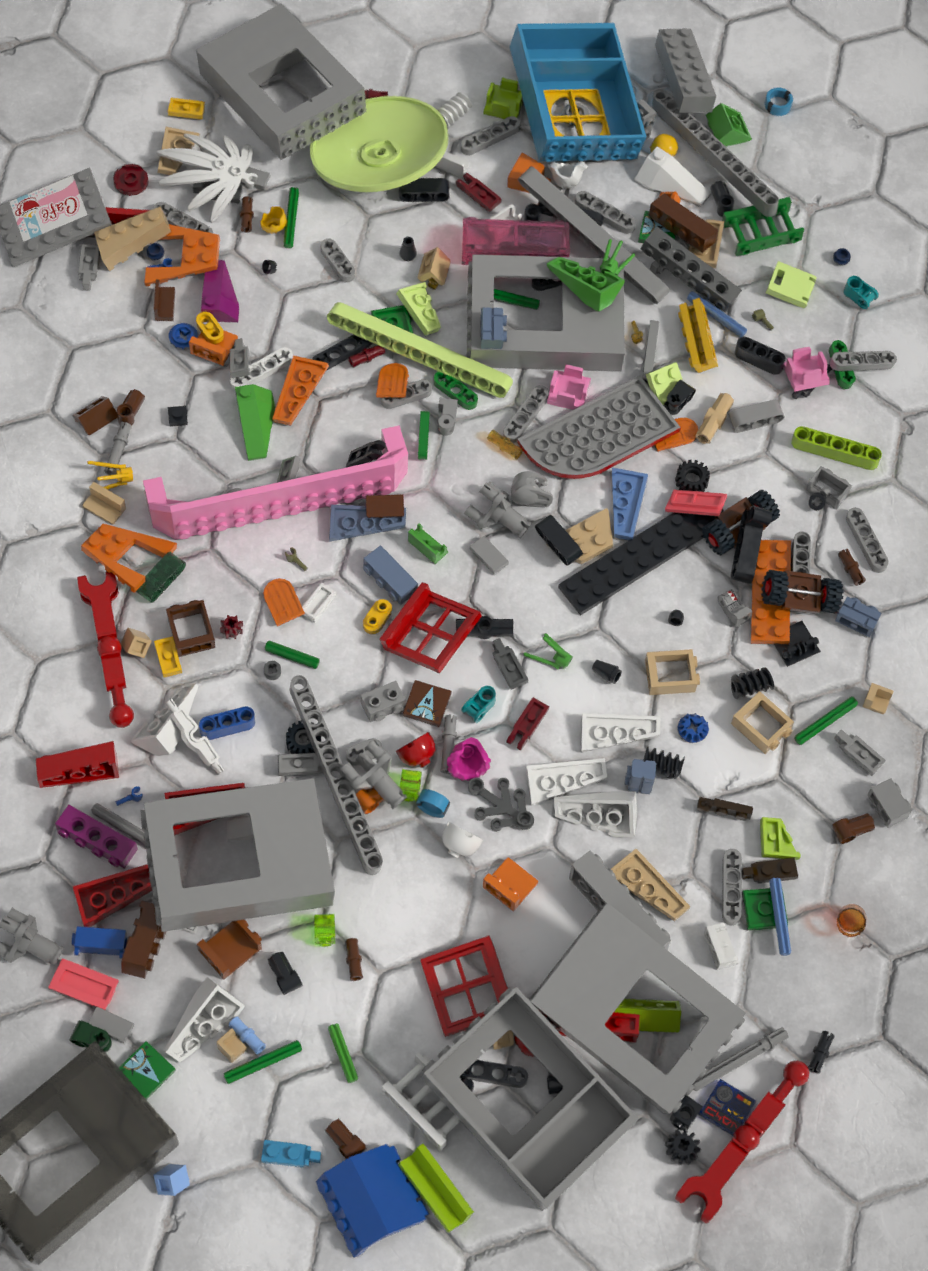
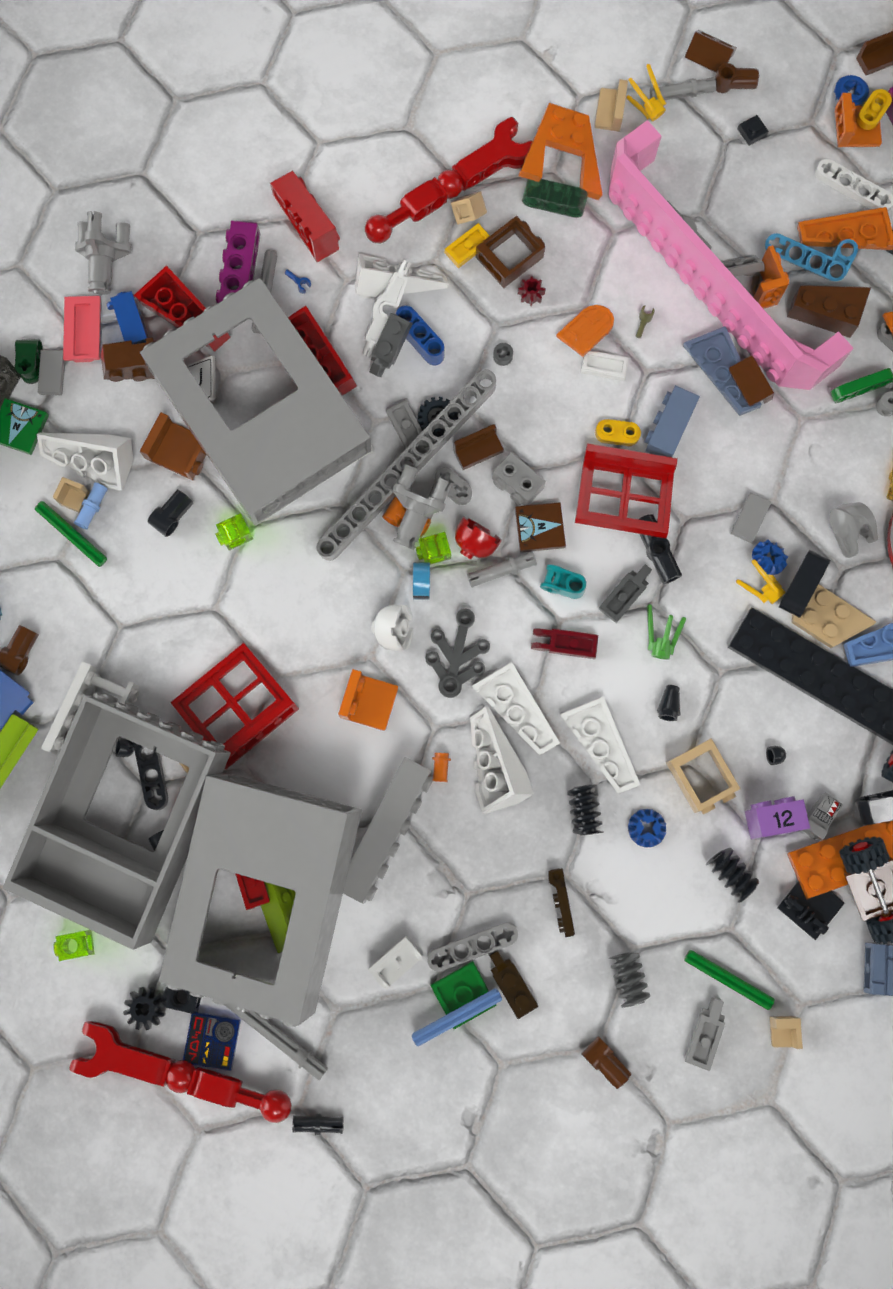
camera: 70 degrees right, 15 degrees up
(225, 746) = (389, 344): none -> dark grey hinge
(239, 360) = (851, 156): light grey hinge -> none
(256, 414) = (798, 200): bright green wedge -> none
(292, 654) = (530, 362): green axle -> none
(303, 424) = (807, 252): none -> dark azure beam
(311, 454) = (774, 280): none -> orange bracket
(342, 721) = (477, 447): none -> reddish brown panel
(343, 1053) = (111, 608): bright green axle -> none
(353, 428) = (830, 307): none -> reddish brown wedge
(354, 959) = (215, 575): reddish brown pin -> none
(366, 453) = (802, 332): black hinge -> none
(426, 544) = (730, 446): bright green hinge -> none
(468, 760) = (488, 596): dark pink hair -> none
(499, 512) = (809, 503): light grey wheel -> none
(530, 559) = (770, 567): none -> blue gear
(551, 565) = (771, 591): none -> yellow plant
(581, 849) = (441, 767): none -> orange pin
(615, 1176) = (84, 945): none -> clear neon green brick
(640, 776) = (554, 791): sand blue brick -> none
(649, 885) = (435, 844): tan wing -> none
(723, 635) = (776, 819): none -> medium lavender brick
(740, 723) = (696, 882): tan window -> none
(776, 840) = (550, 977): lime wing -> none
(799, 784) = (630, 979): none -> dark grey piece
(851, 919) = (491, 1103): clear orange helmet -> none
(889, 802) = (656, 1096): light grey brick -> none

